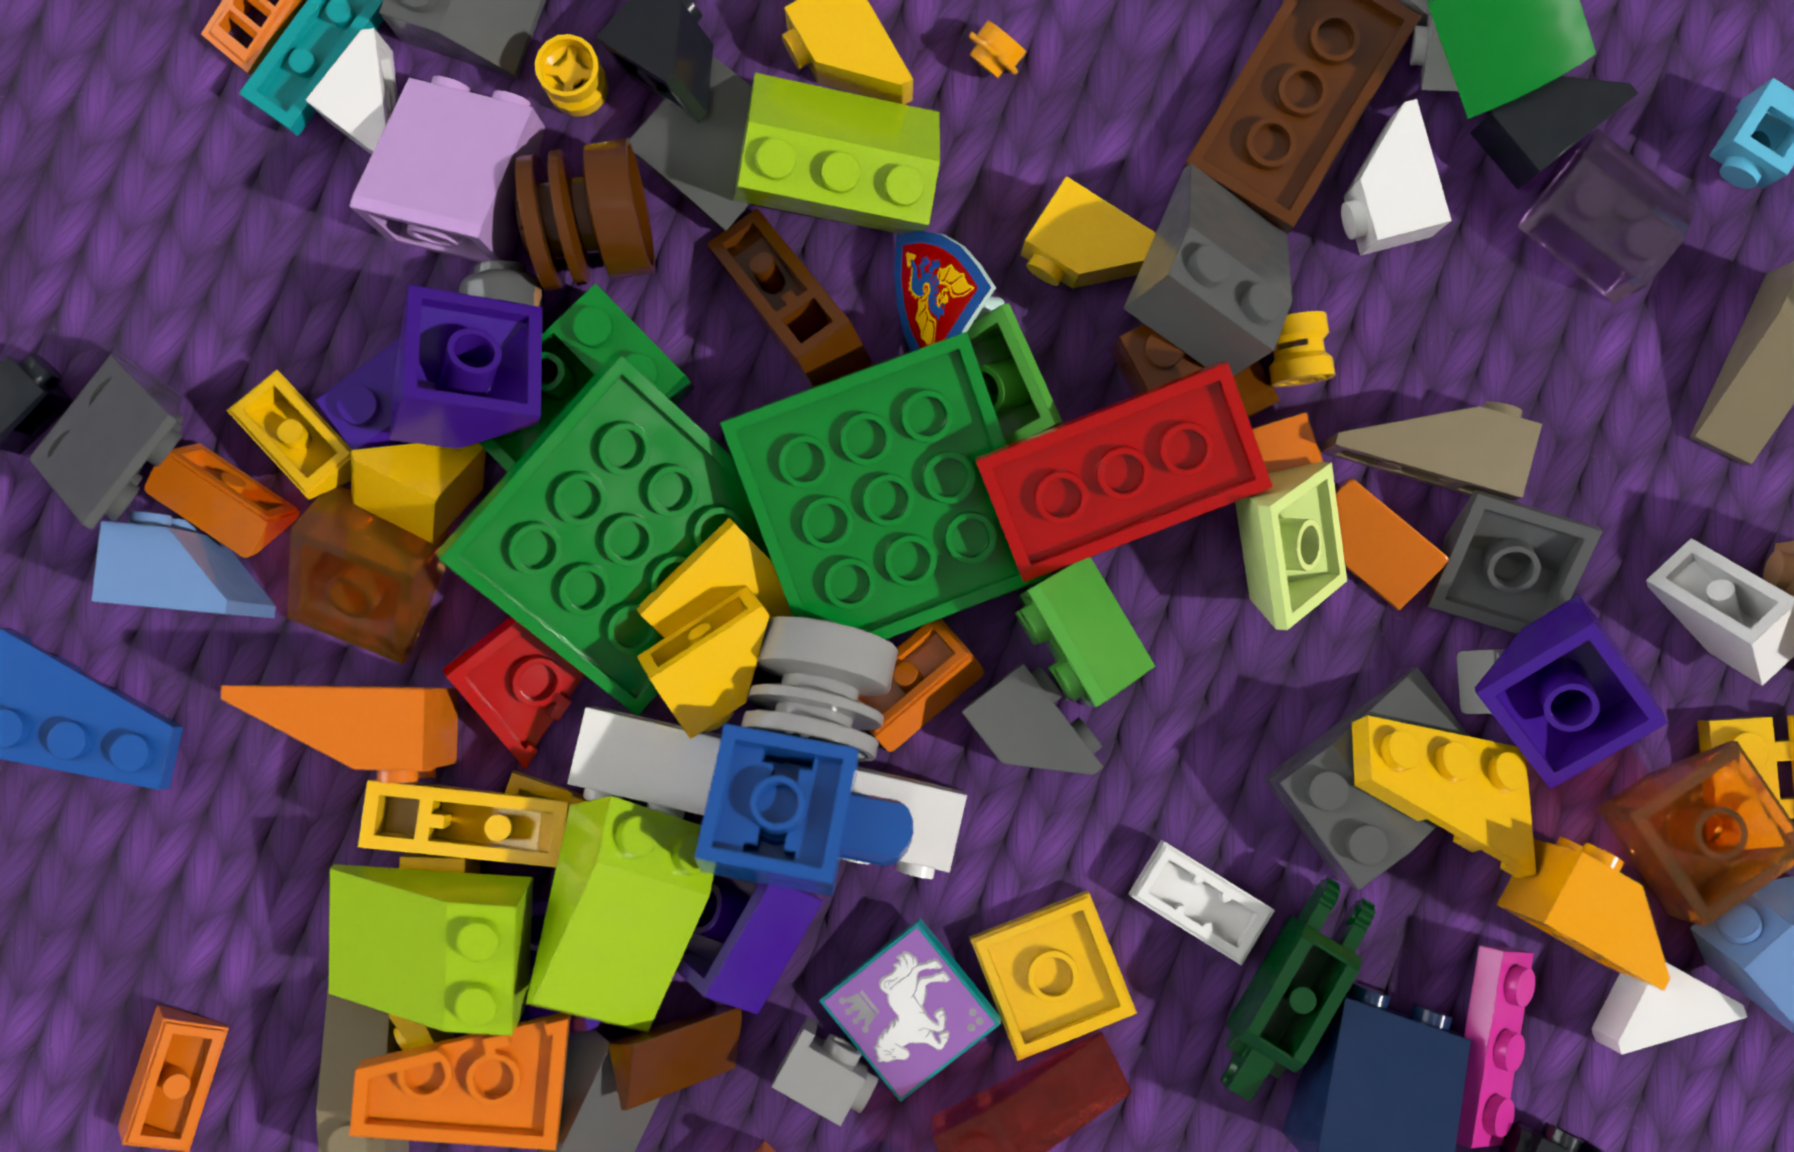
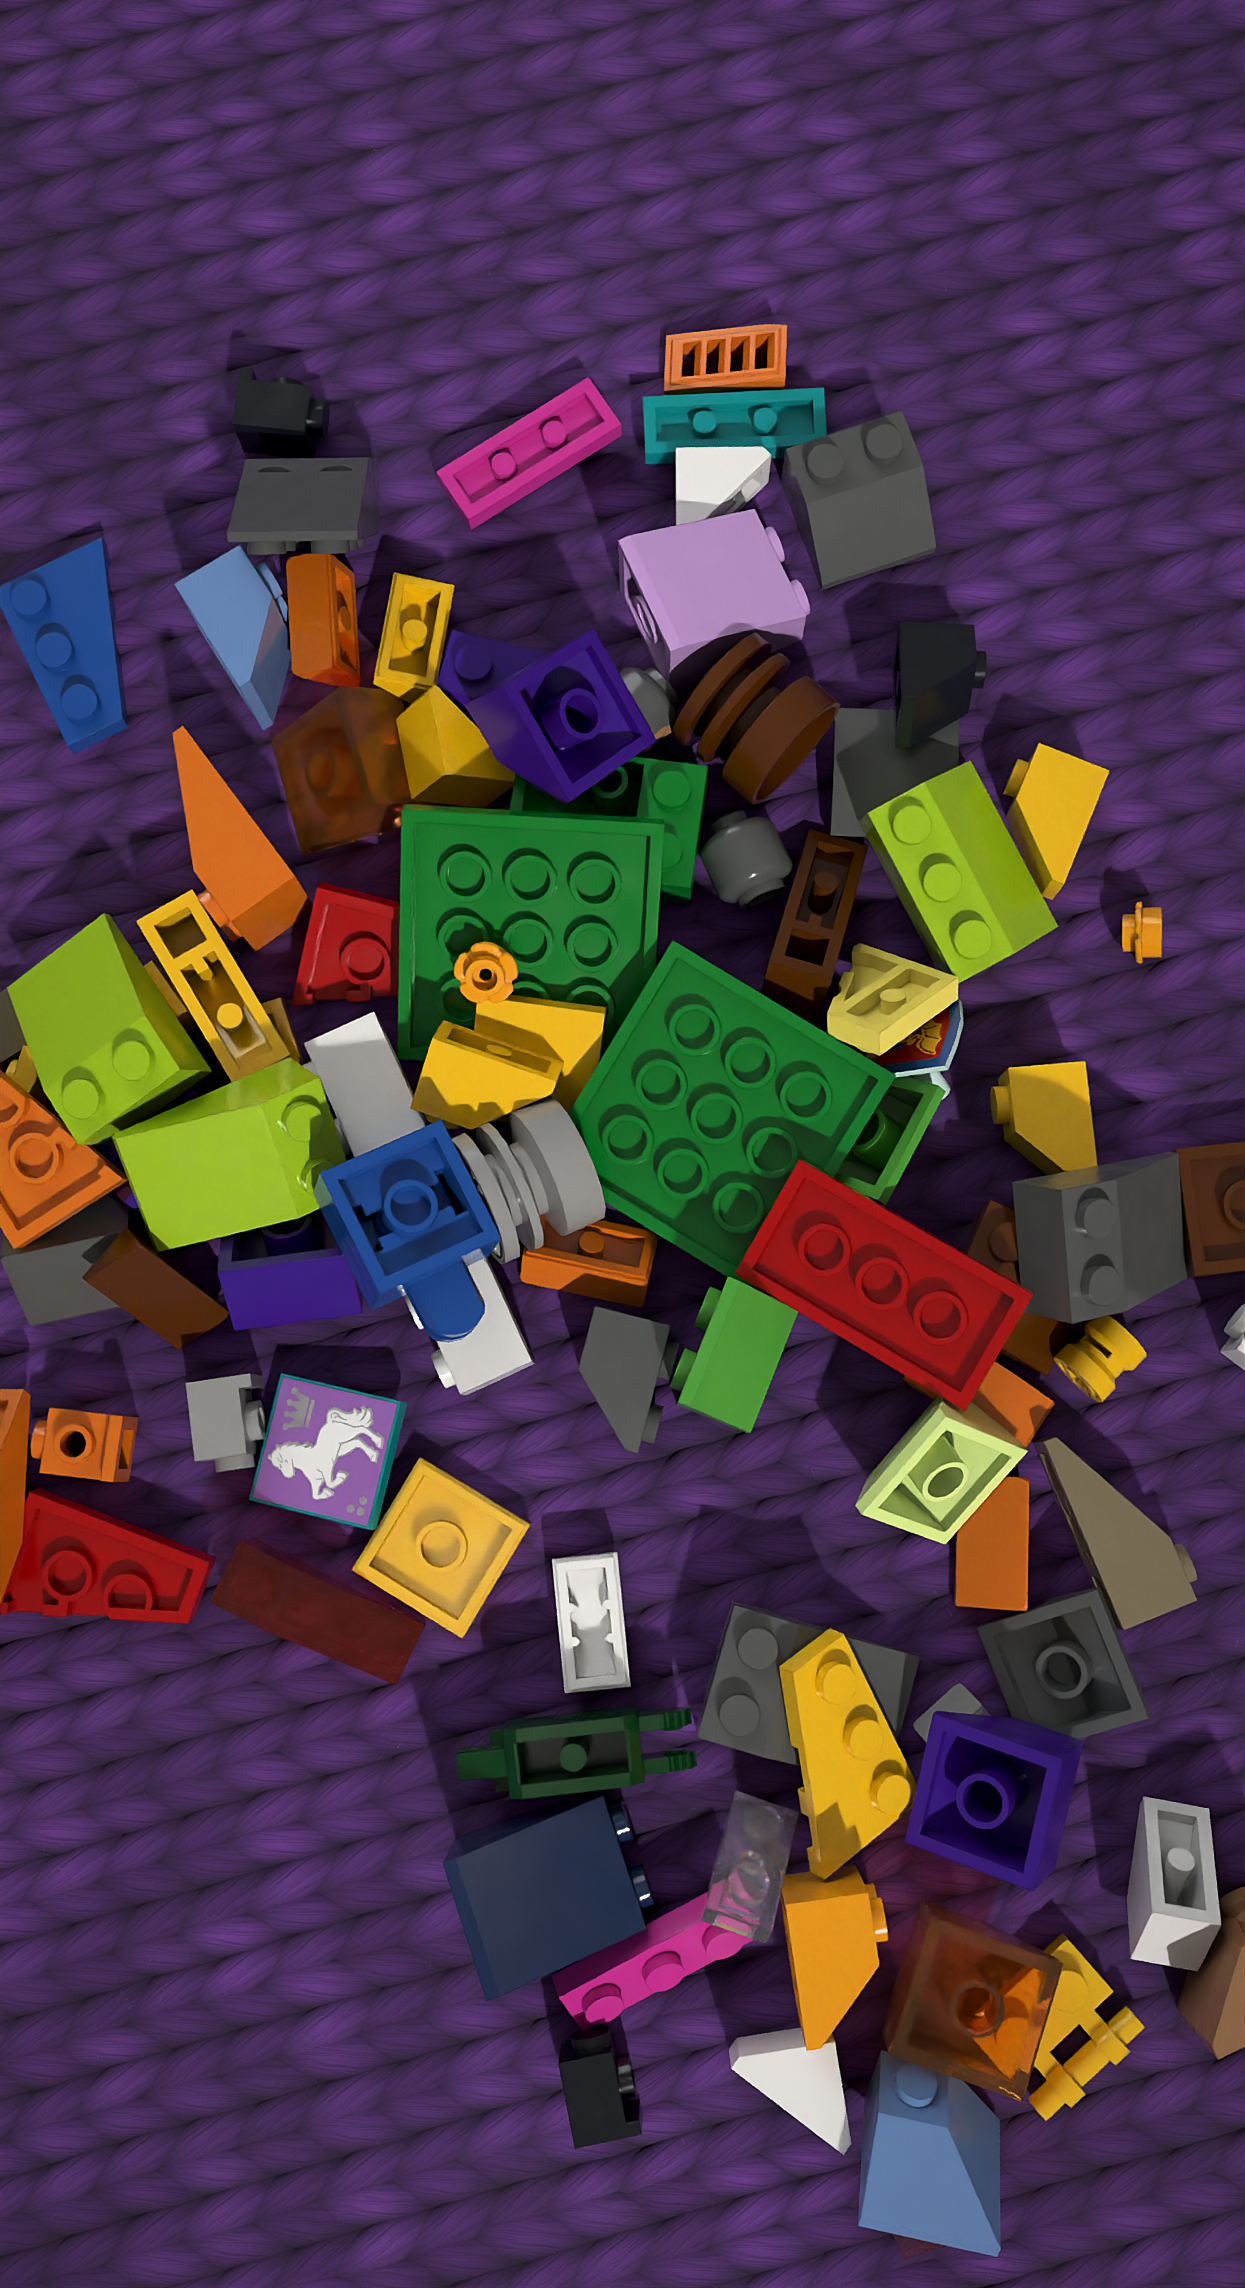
camera: 60 degrees right, 5 degrees down
(212, 222) = (529, 453): none -> dark pink plate
(569, 61) = (859, 614): yellow wheel -> none
(618, 579) = (486, 956): none -> light orange plate
(693, 312) = (746, 860): none -> dark grey head
(897, 291) = (886, 999): none -> light yellow wing
(1482, 923) = (750, 1867): none -> clear plate

